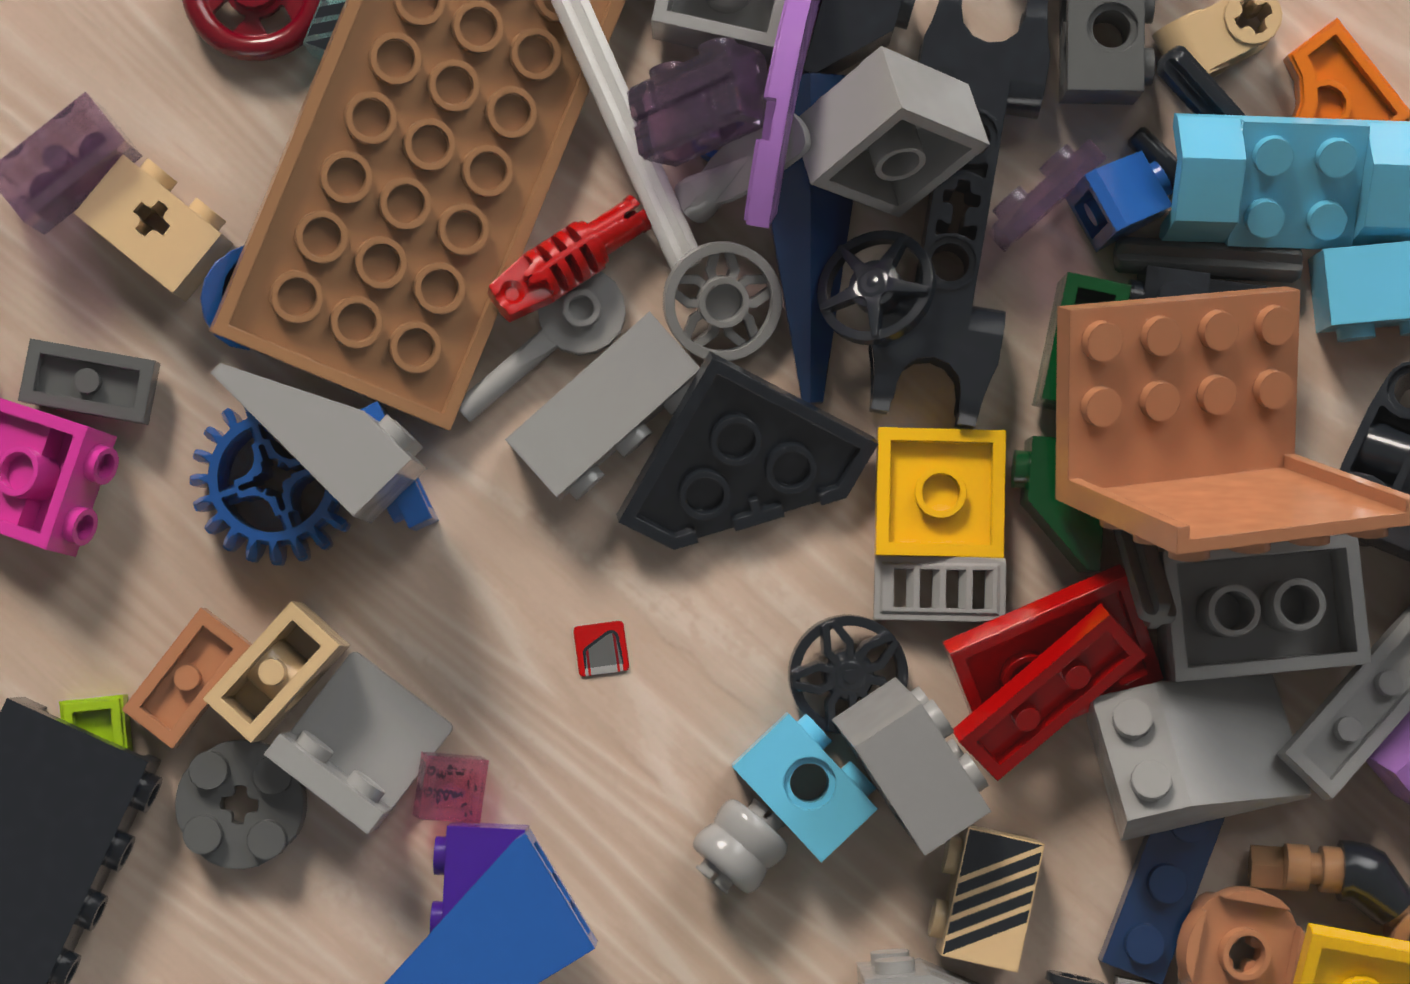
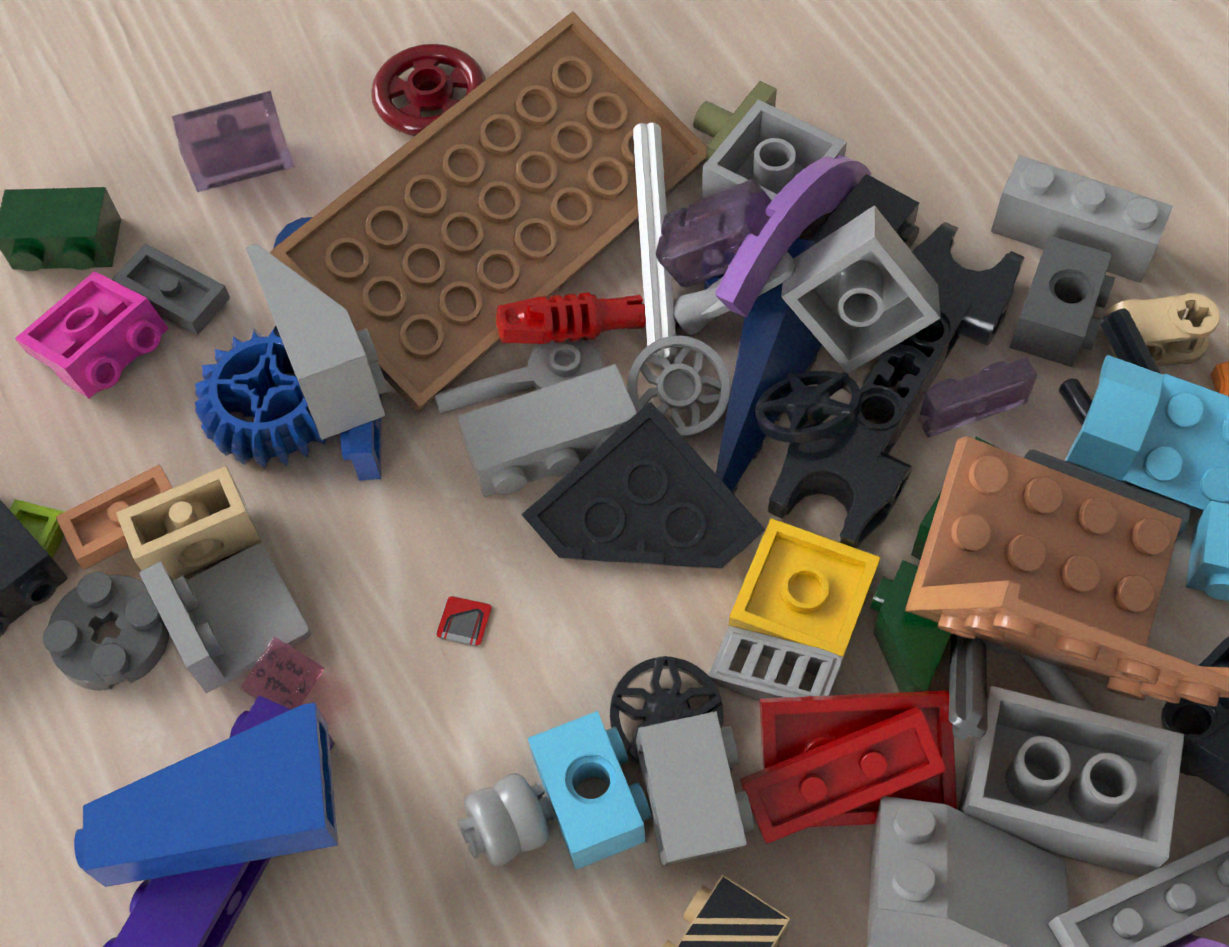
camera: 25 degrees right, 25 degrees down
(120, 214) = (270, 193): tan brick -> none
(1120, 199) = (1037, 410): blue slope -> none

